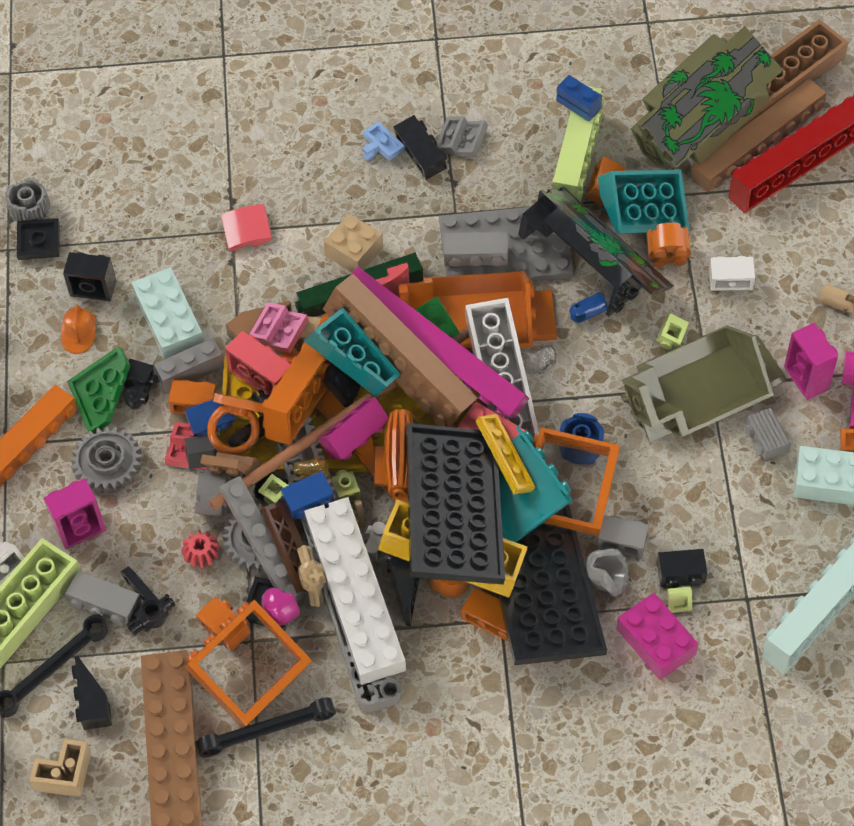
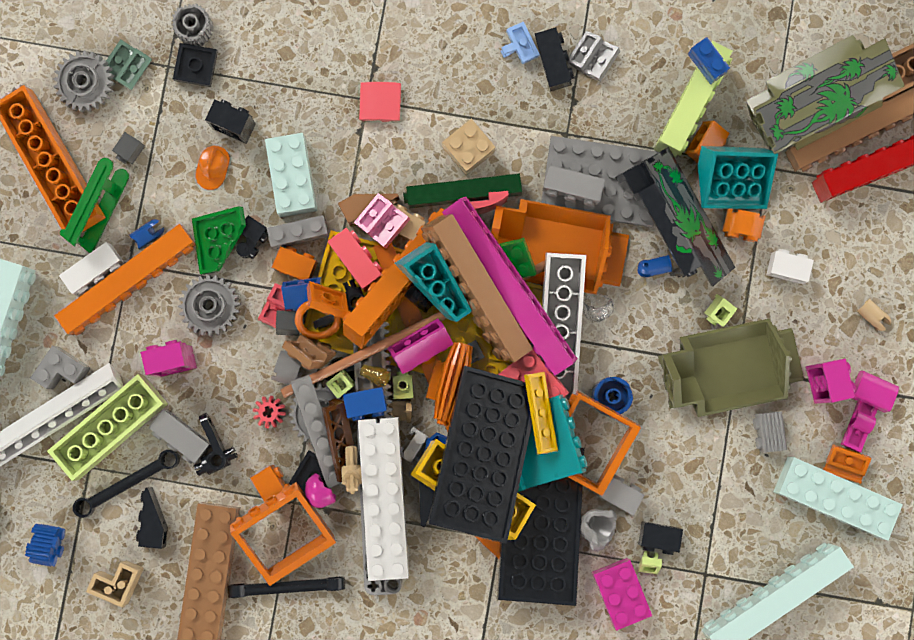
camera: 10 degrees right, 25 degrees up
(17, 409) = (146, 234): none -> blue piece

